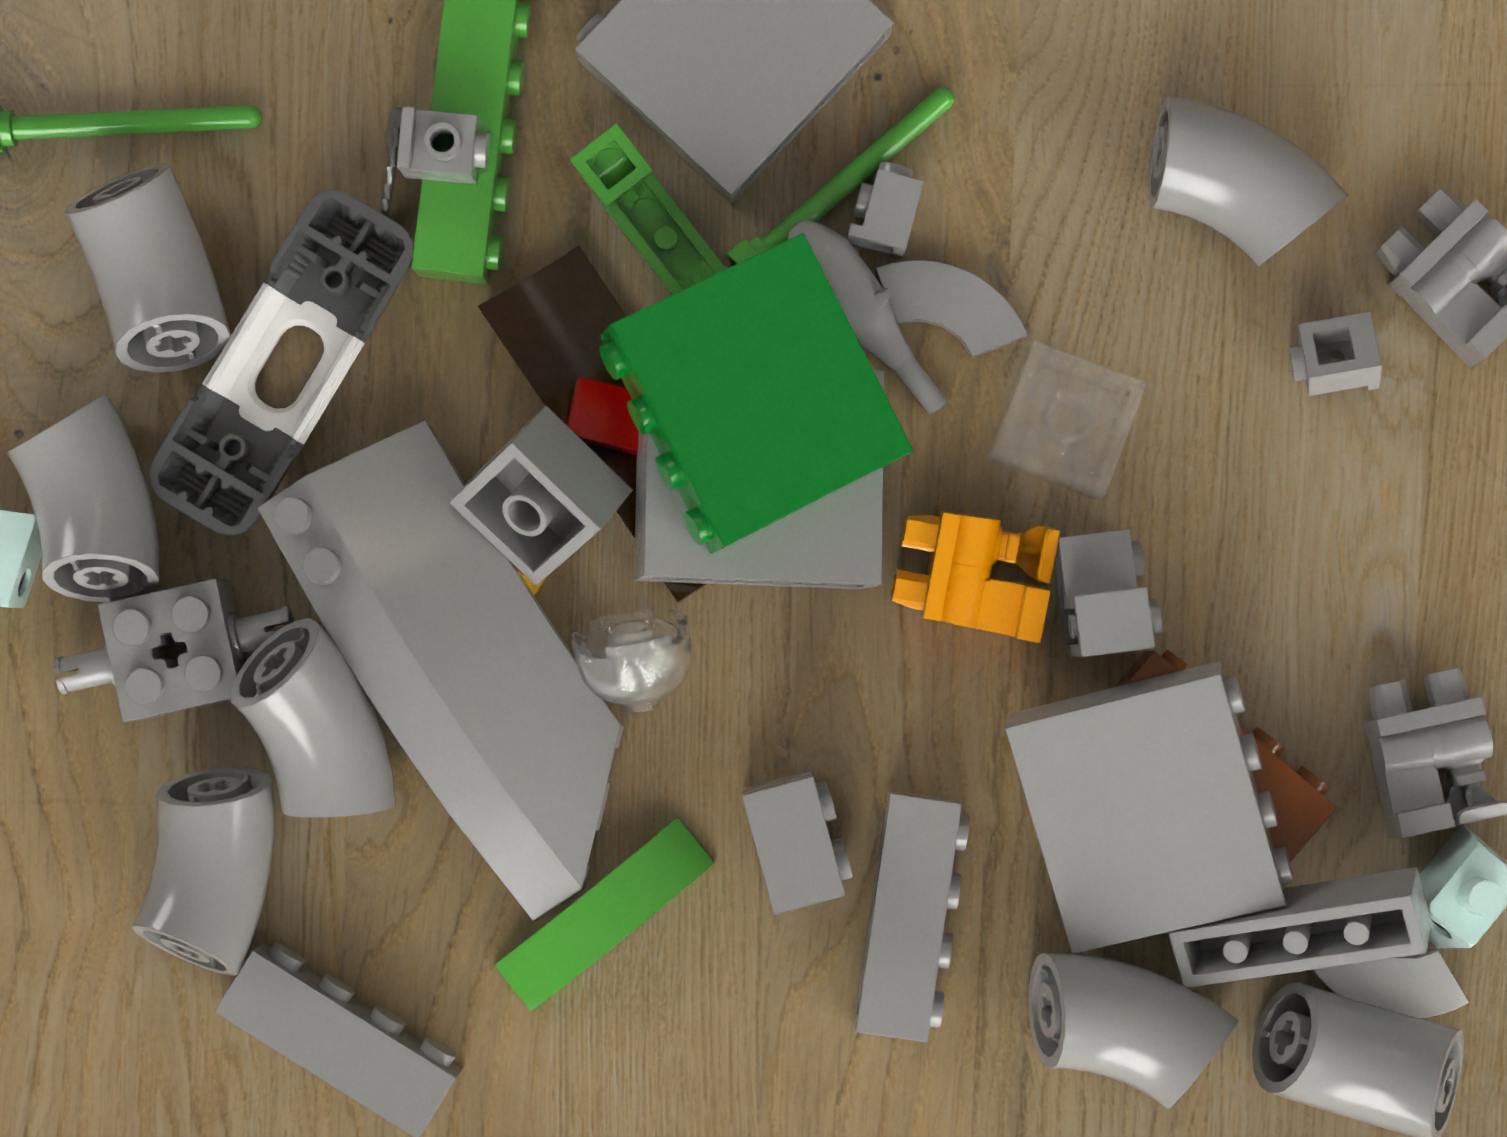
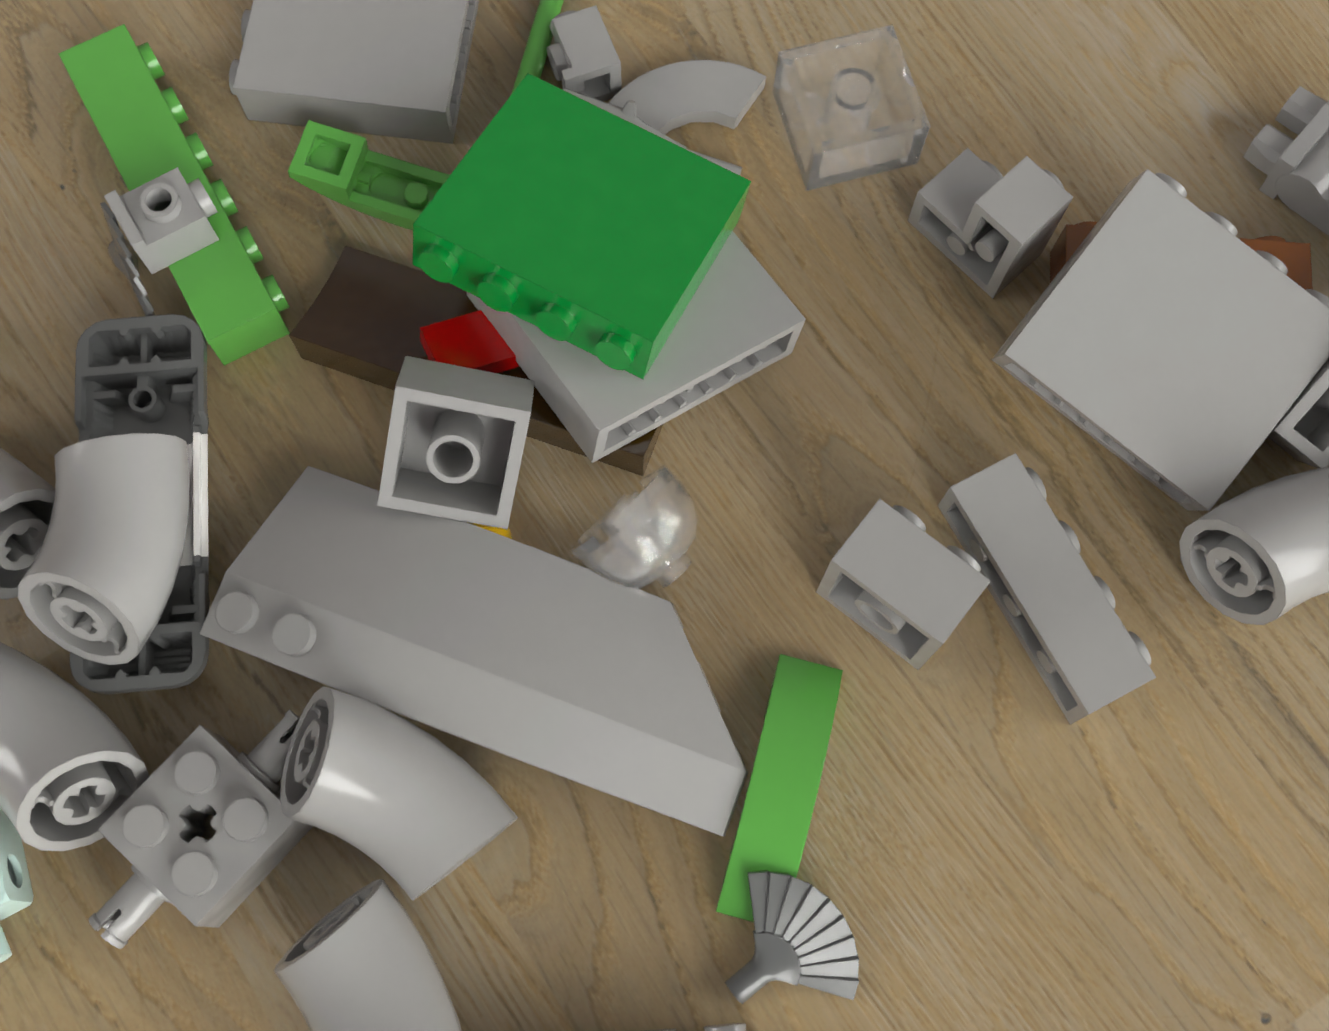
camera: 35 degrees left, 15 degrees down
(235, 402) = (110, 545): none -> light grey brick
(534, 1026) = (796, 939): none -> hand
(959, 573) = (858, 286): light orange hips -> none

